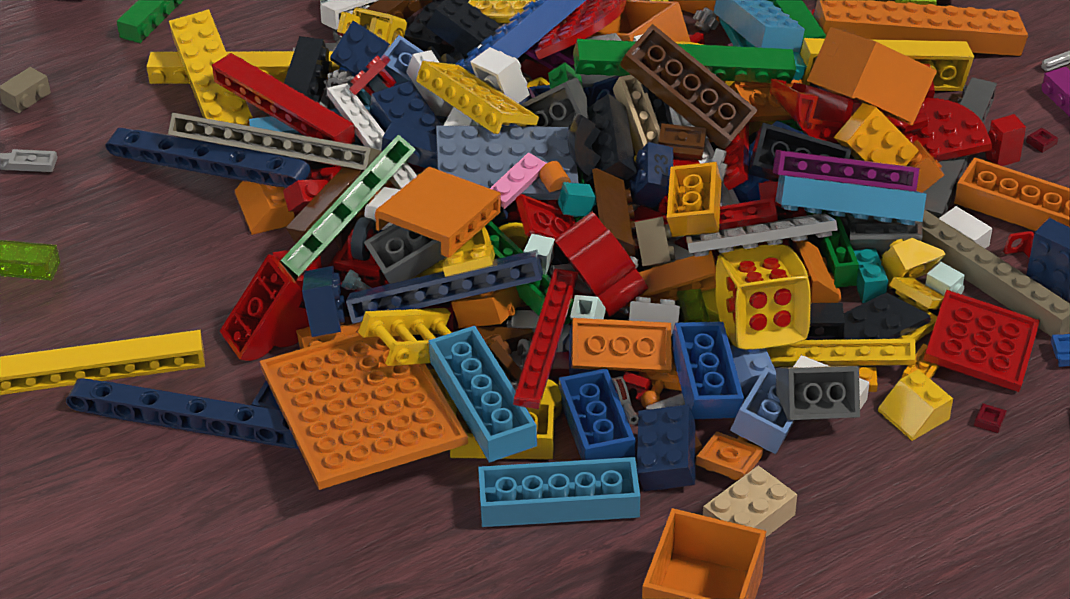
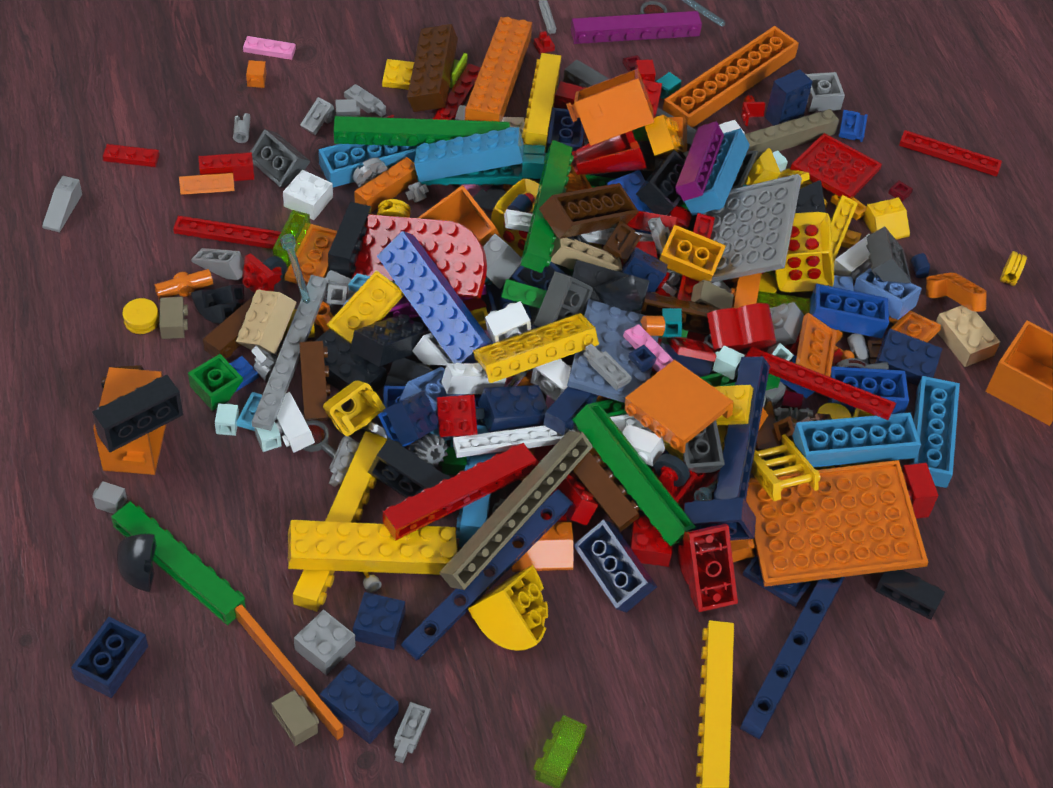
camera: 80 degrees left, 10 degrees up
(46, 121) = (360, 703): none -> dark blue brick
(71, 76) = (289, 672): none -> orange tile
(108, 87) = (324, 642): none -> light grey brick
(141, 110) = (379, 620): none -> dark blue brick
(173, 187) = (513, 611): none -> yellow brick
(186, 103) = (371, 583): none -> light grey hinge
(246, 247) = (615, 566): none -> dark blue brick
(299, 508) = (910, 592): none -> black brick
(448, 481) = (920, 488): none -> red brick
(462, 144) = (607, 367): none -> light grey hinge
(491, 170) = (642, 358): none -> dark blue brick
(816, 480) = (958, 289): none -> orange beam
(852, 451) = (920, 265): none -> dark blue brick
(899, 542) = (1013, 268): none -> yellow head
(1017, 63) = (544, 43): none -> red tile
(1020, 163) = (670, 85): none -> teal brick

